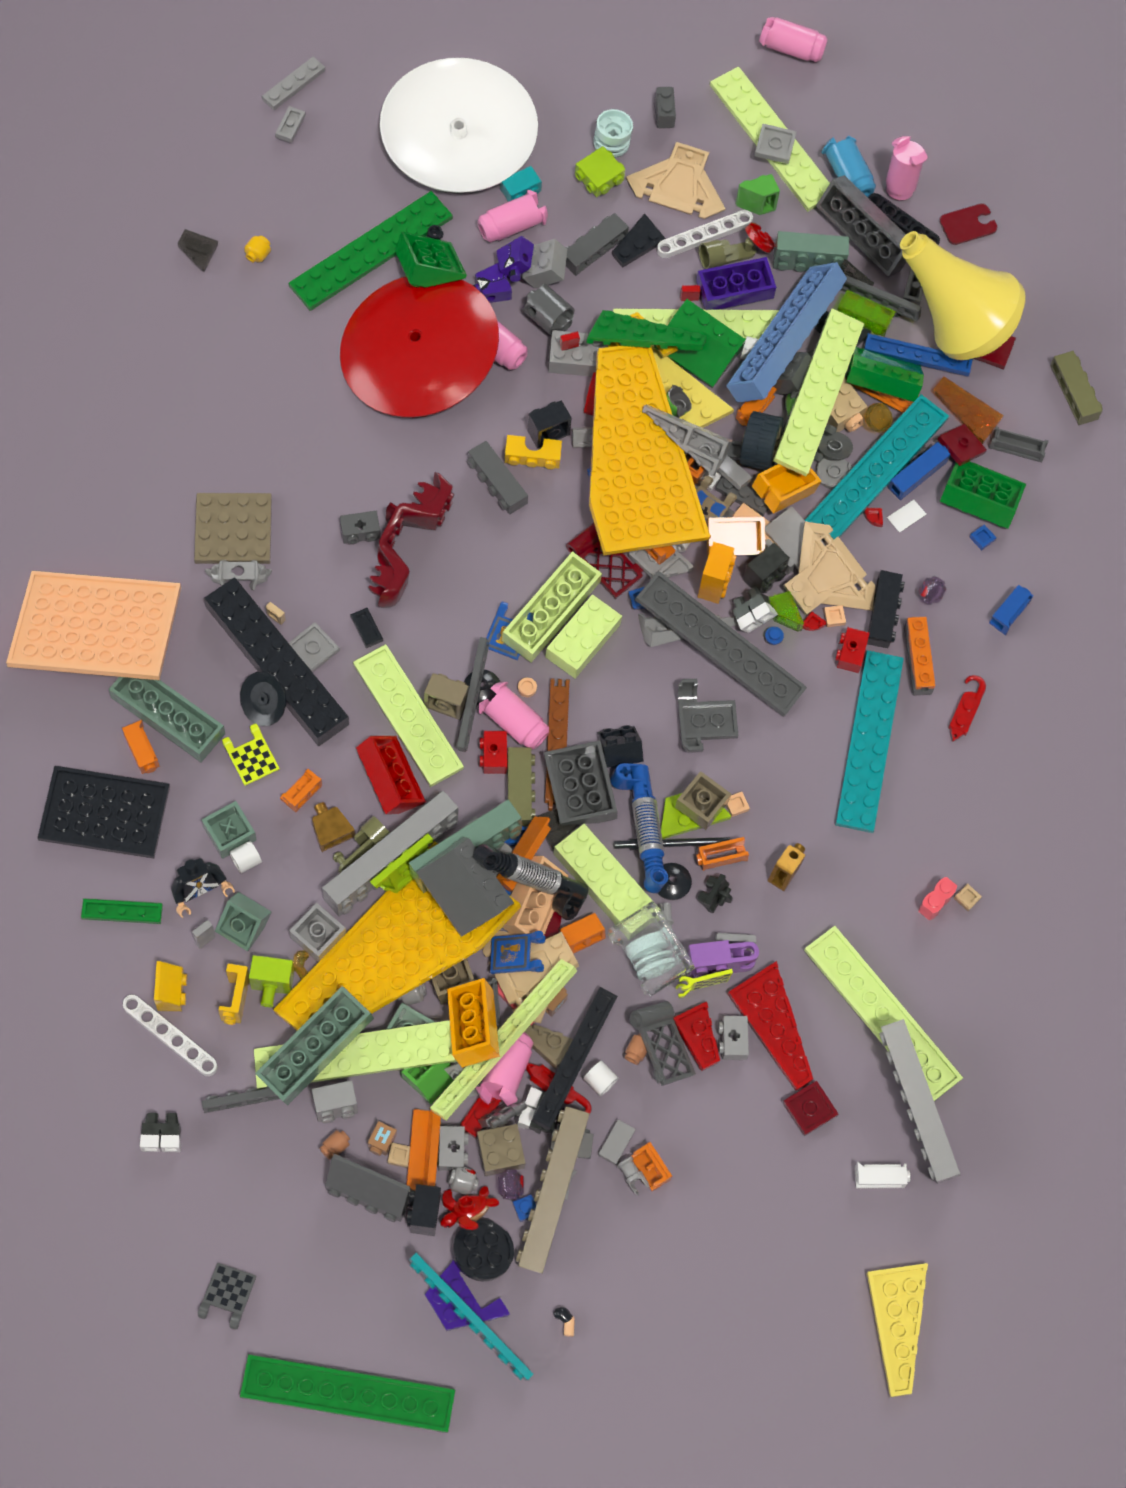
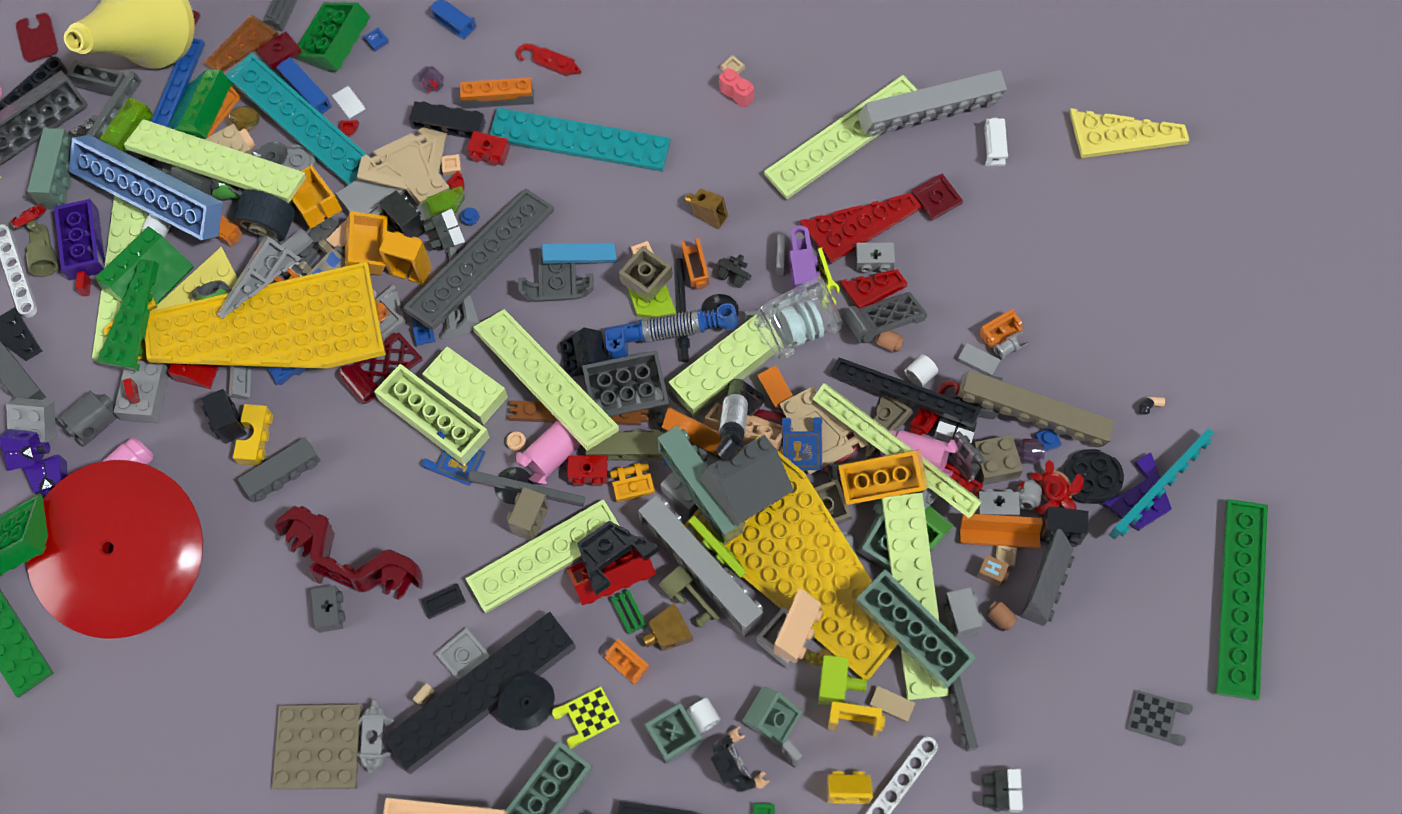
camera: 80 degrees left, 0 degrees up
(251, 1035) = (892, 704): none -> tan tile
(320, 934) = (798, 627): none -> light nougat slope
(350, 785) = (622, 597): none -> green tile
(410, 765) = (607, 546): none -> black wing
(476, 793) = (632, 487): none -> light orange plate
(585, 706) = (546, 379): none -> yellowish green plate
(730, 739) = (579, 253): none -> dark azure tile

